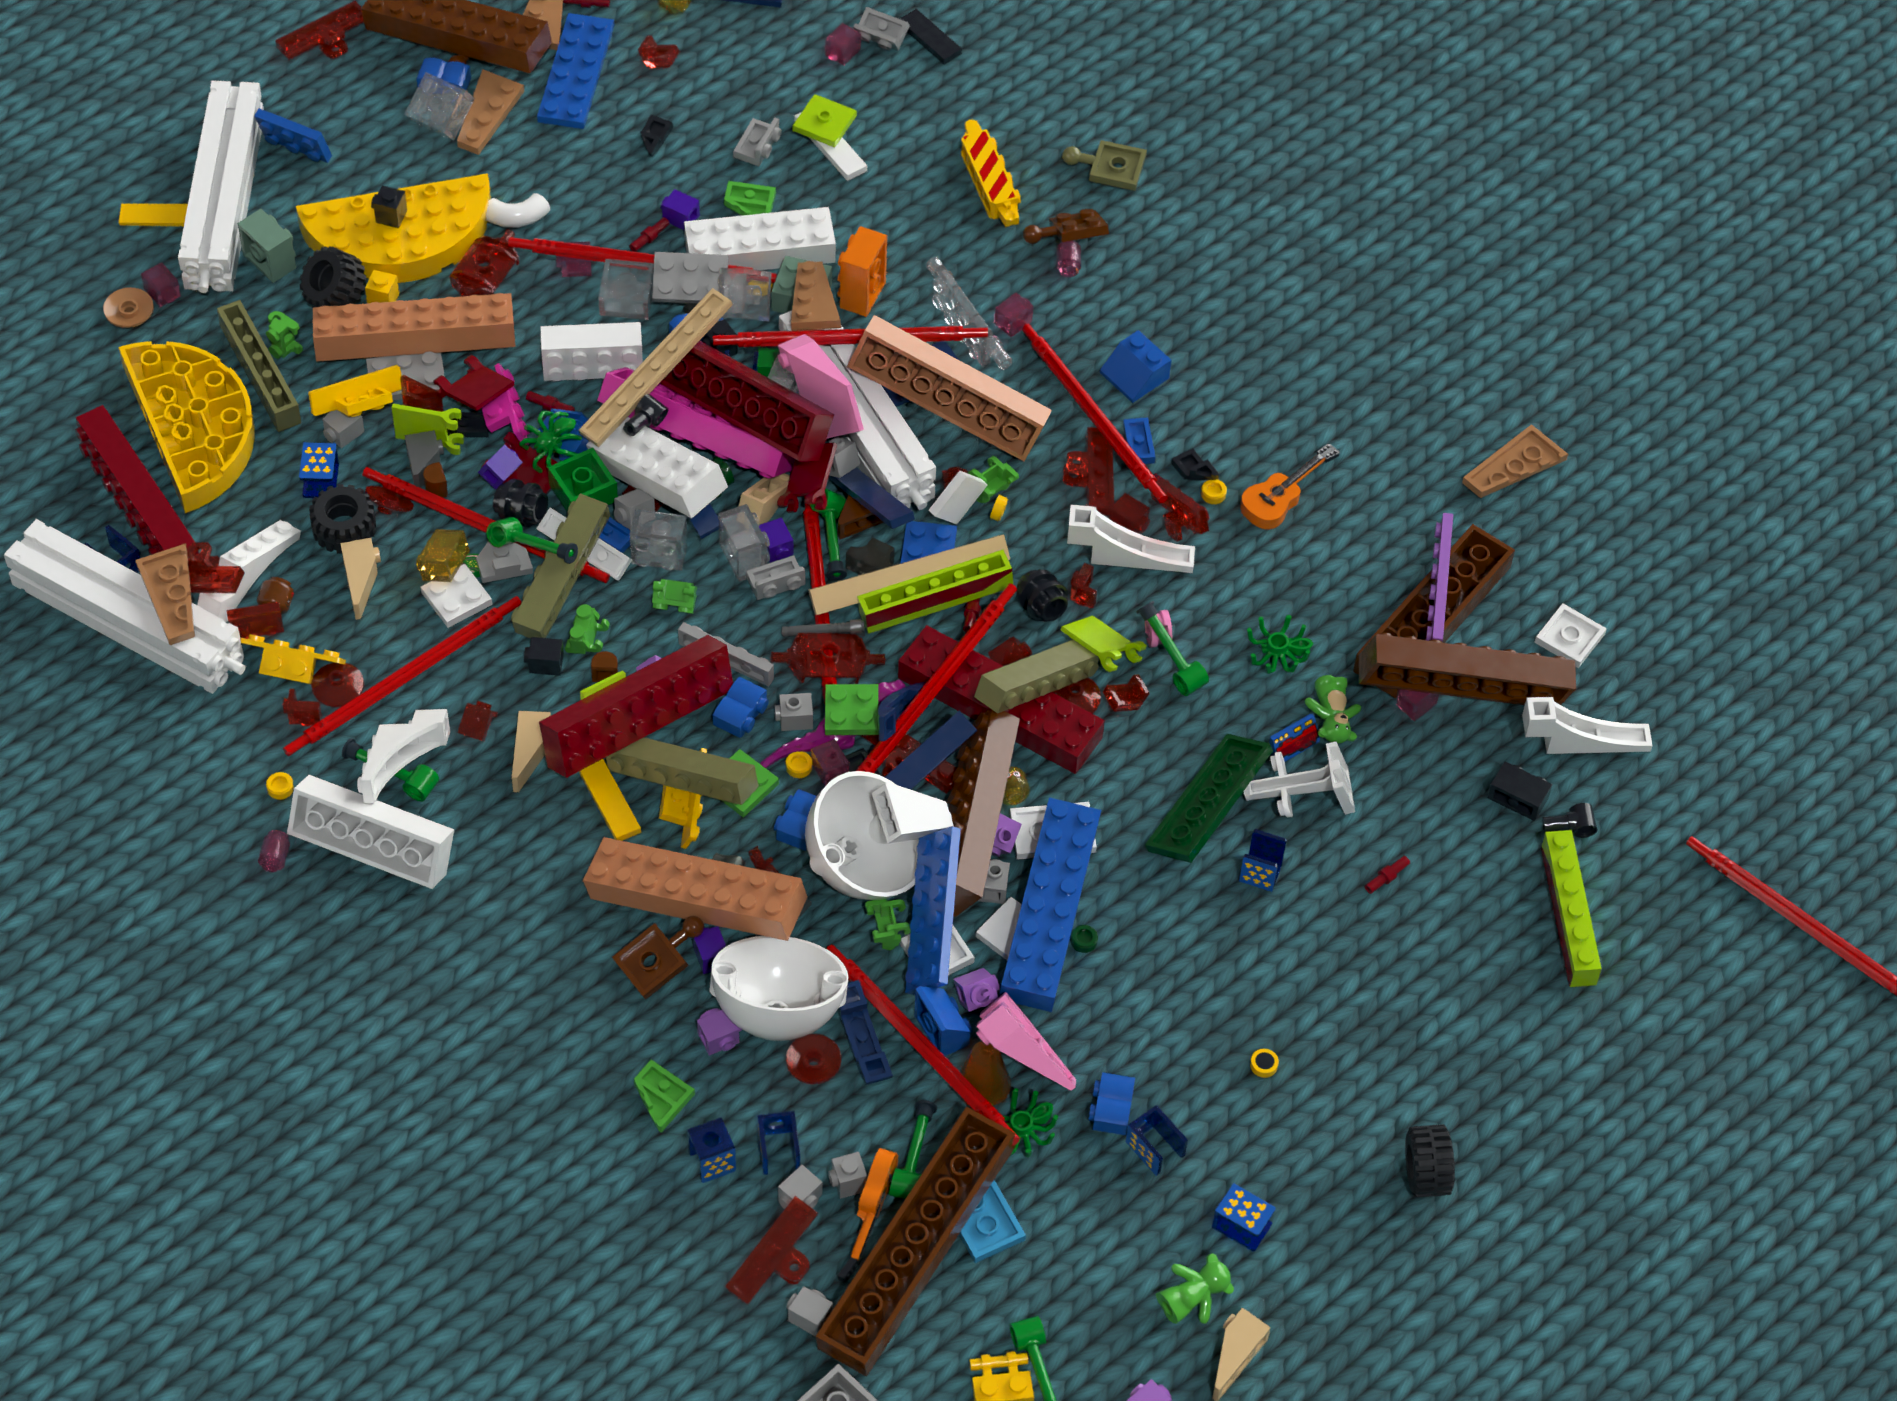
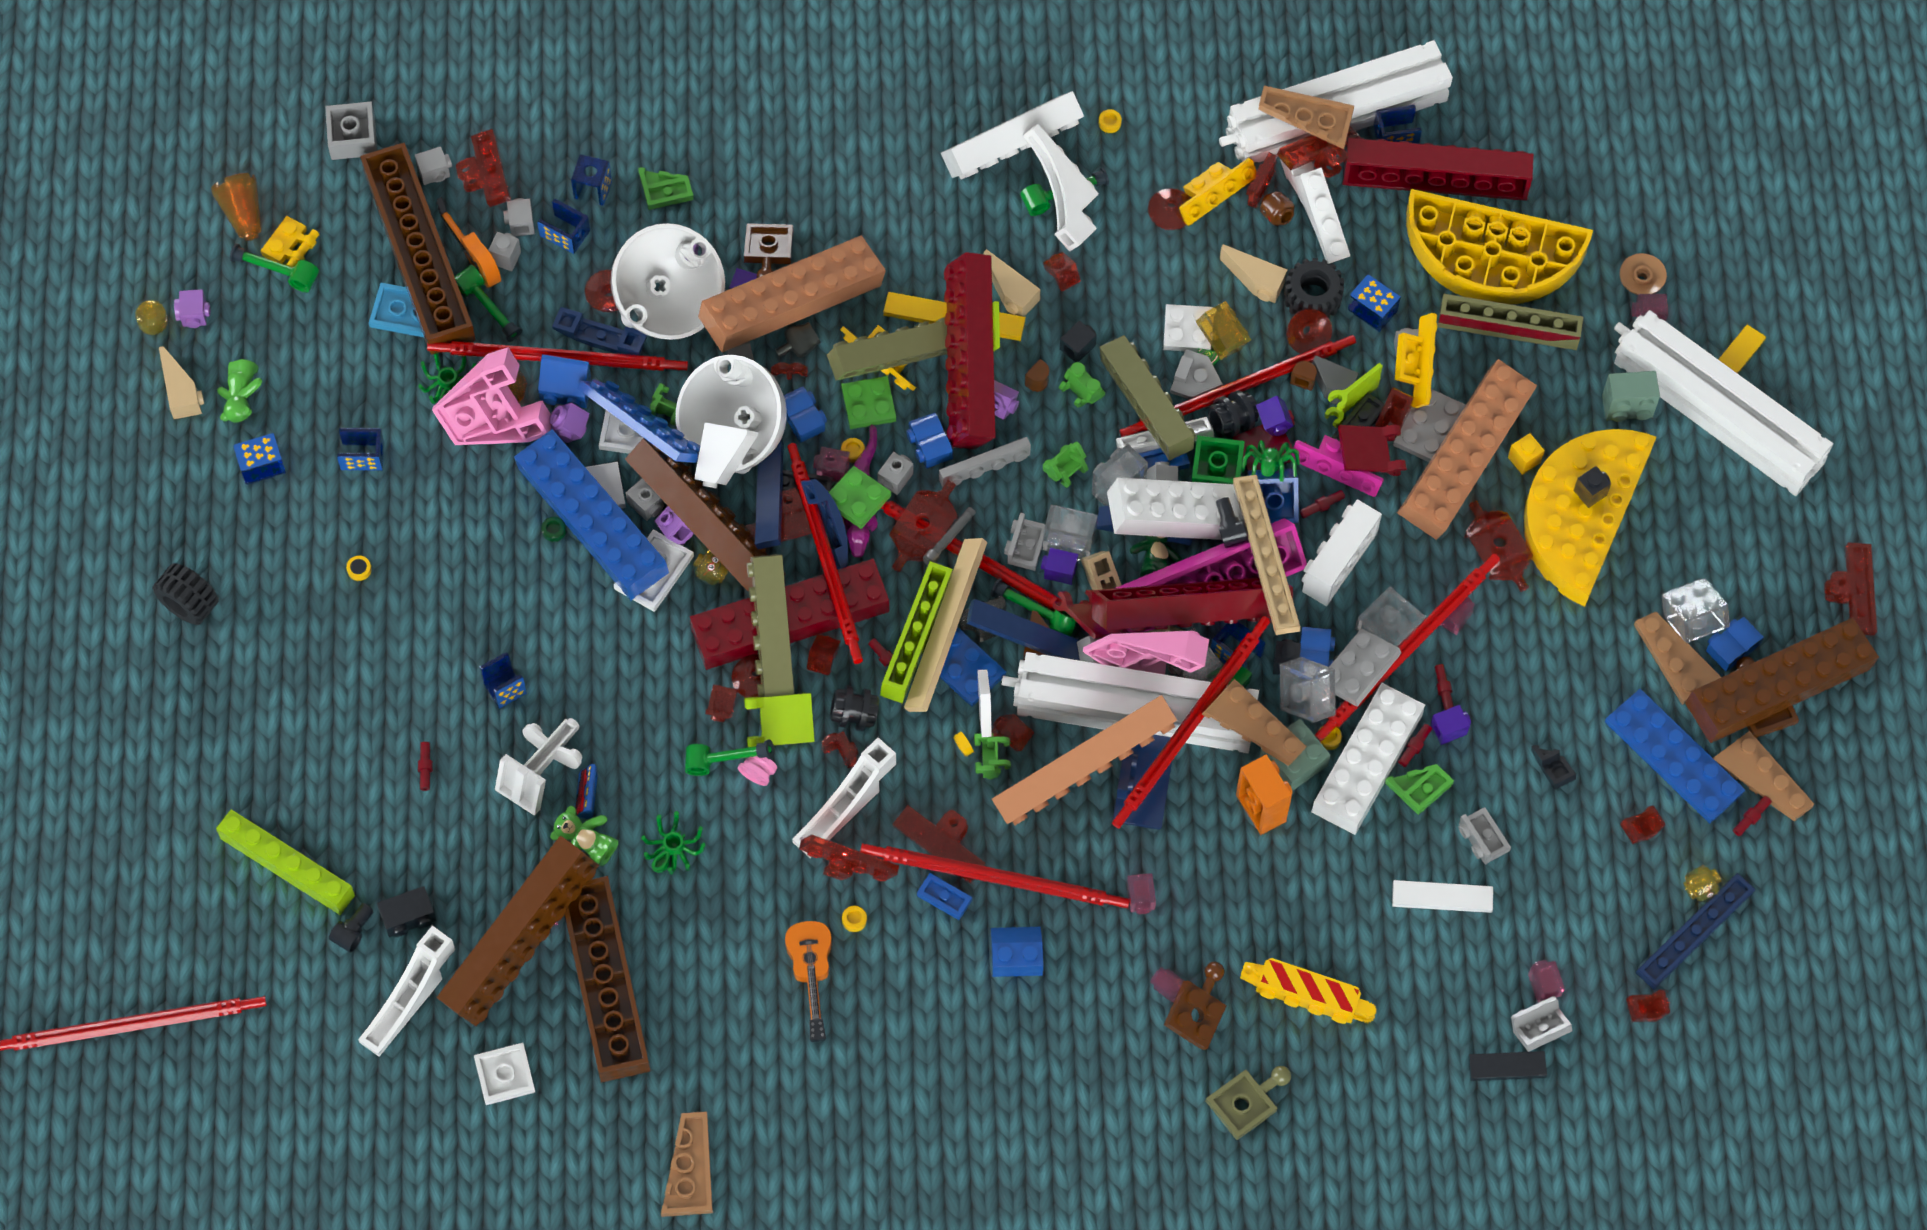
camera: 130 degrees right, 10 degrees up
(274, 851) = (1053, 80): clear pink brick -> none
(281, 338) = (1529, 357): bright green piece -> none
(293, 136) = (1740, 483): blue plate -> none
(301, 712) = (1157, 165): clear red bracket -> none
(332, 278) = (1554, 414): black tyre -> none
(402, 676) = (1142, 251): red axle -> none
(510, 531) = (1206, 378): green piece -> none
(517, 214) = (1536, 601): white cylinder -> none
(824, 120) = (1465, 901): lime plate -> none
(961, 312) = (1167, 847): clear plate -> none
(1113, 1103) = (412, 446): blue brick -> none
(1130, 514) = (878, 831): clear red brick -> none
(1193, 467) = (887, 919): black slope -> none
(1208, 798) = (586, 689): dark green plate -> none
(1440, 572) = (604, 972): medium lavender plate -> none

